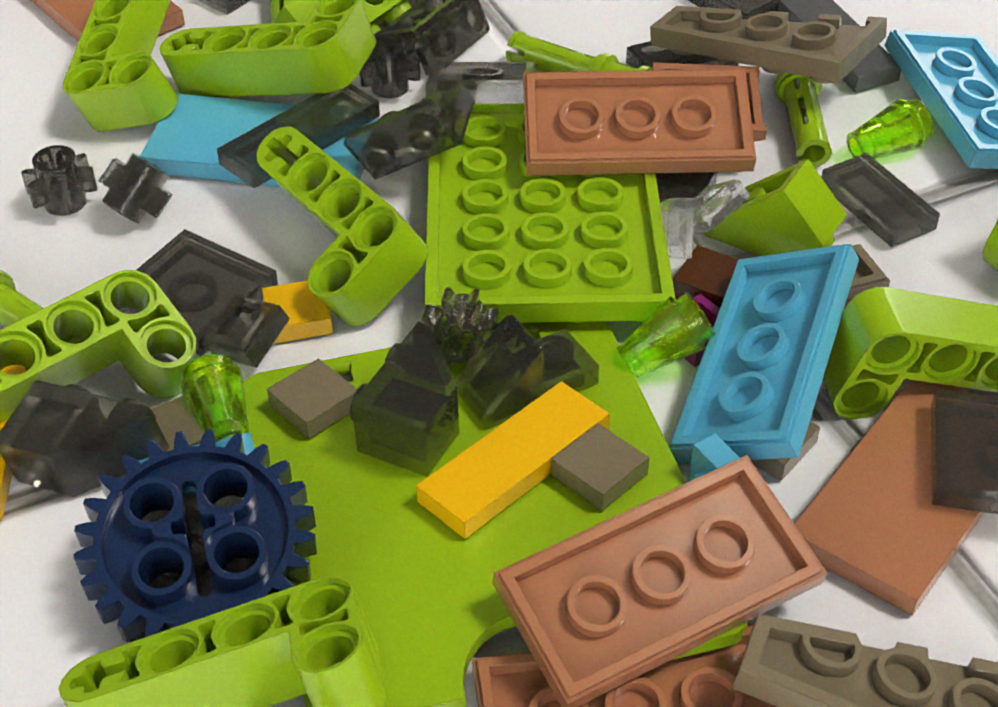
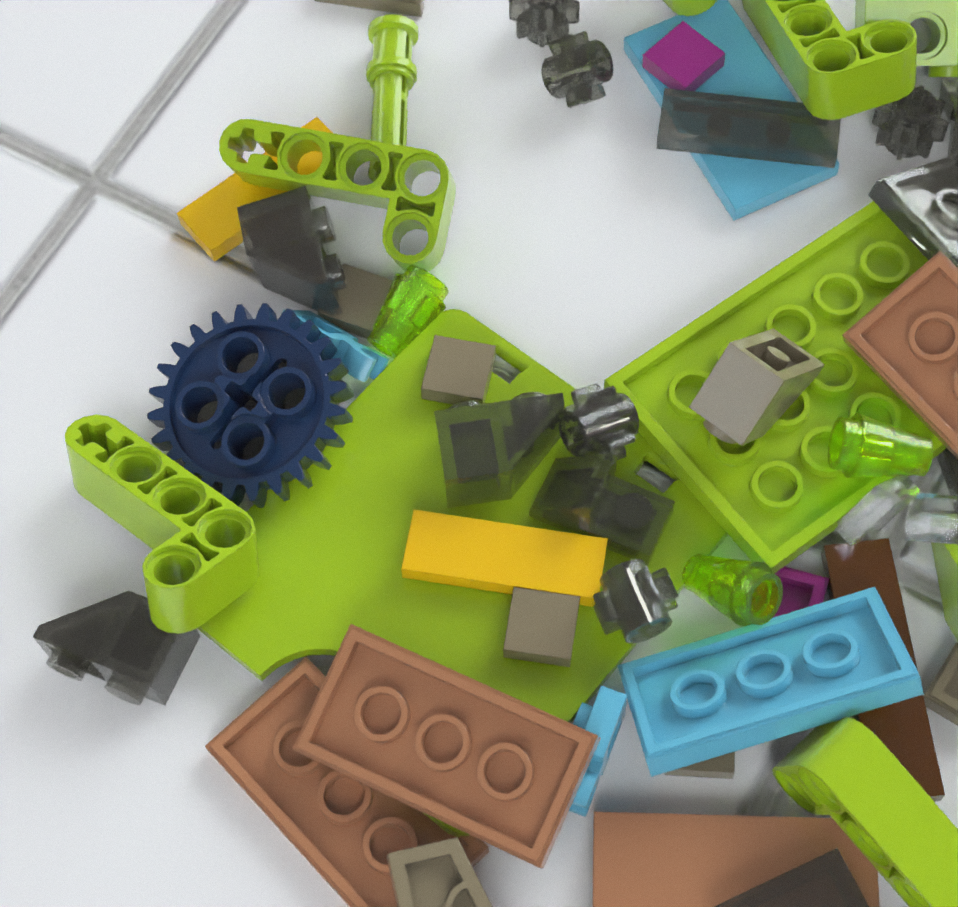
camera: 60 degrees right, 20 degrees up
(201, 131) = (683, 59): none -> magenta tile
(203, 280) = (514, 198): clear smoke tile -> none
(246, 330) = (493, 271): clear smoke tile -> none
(306, 312) = (553, 286): yellow tile -> none
(373, 245) = (660, 250): lime beam -> none
(412, 133) = (817, 215): clear smoke bracket -> none
(529, 215) = (754, 386): none -> dark tan slope
(635, 191) = (877, 449): none -> clear neon green cone
(636, 386) = (635, 601): none -> clear smoke gear

